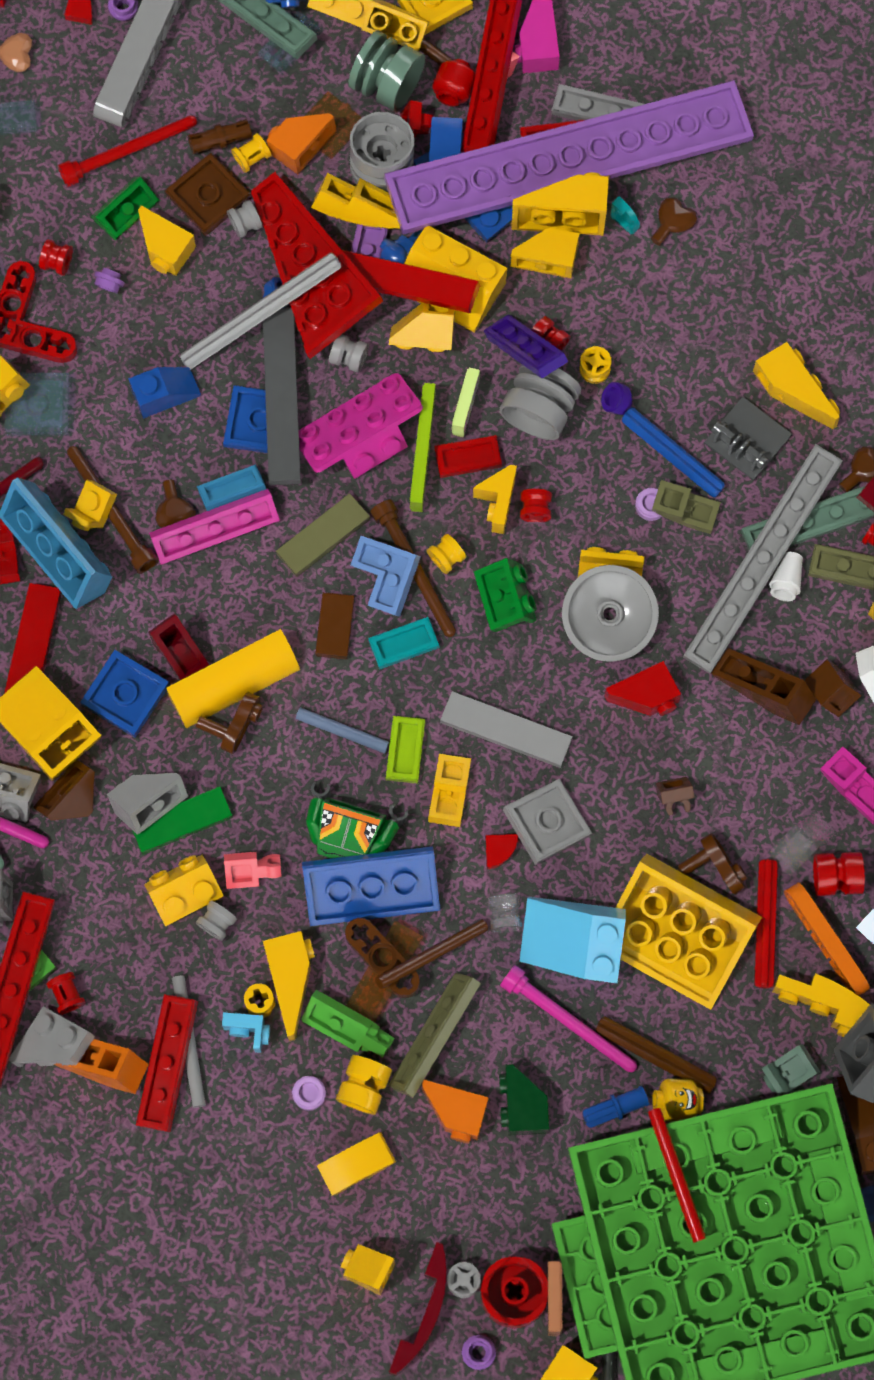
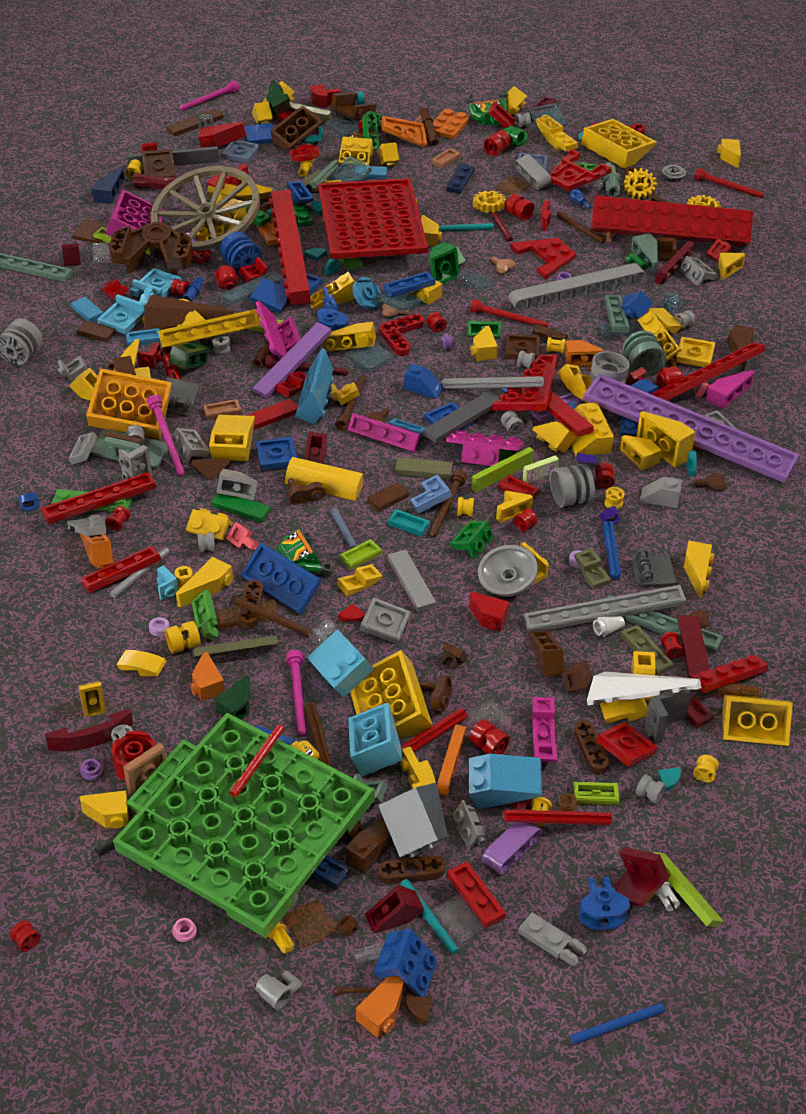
camera: 45 degrees right, 30 degrees down
(640, 301) = (662, 492): none -> light grey slope
(729, 1002) = (374, 740): none -> medium azure slope

